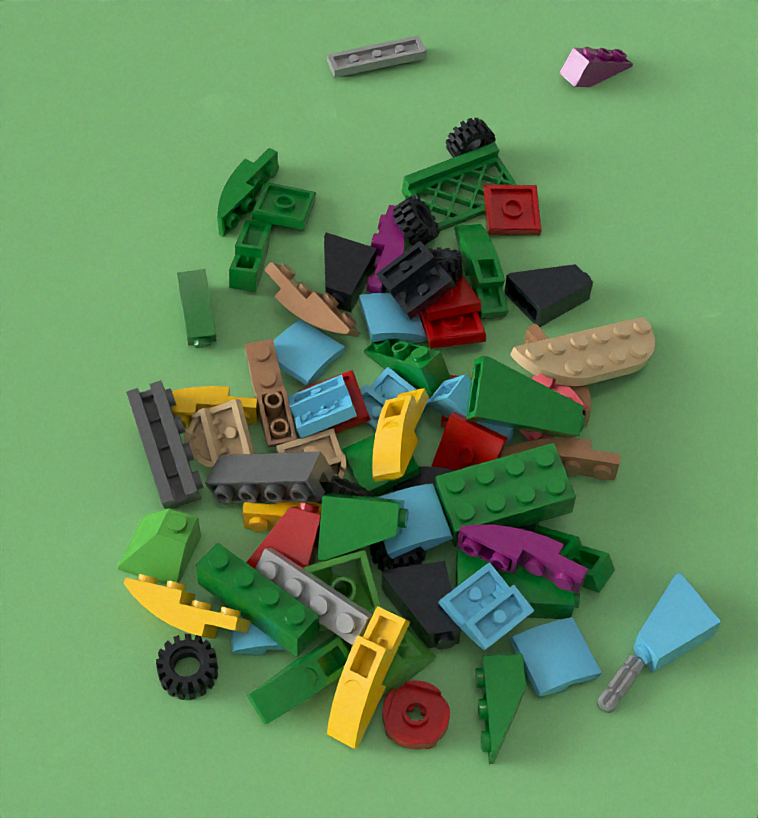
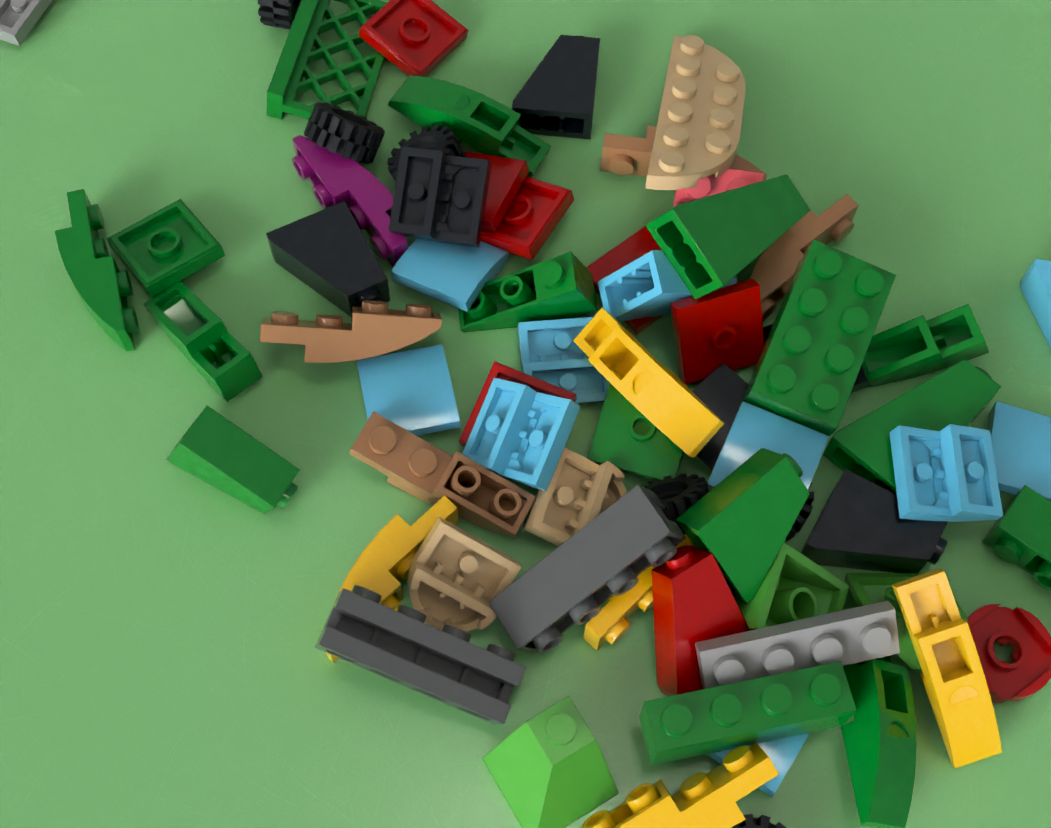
camera: 50 degrees left, 10 degrees up
(513, 547) = (910, 381): magenta slope -> none

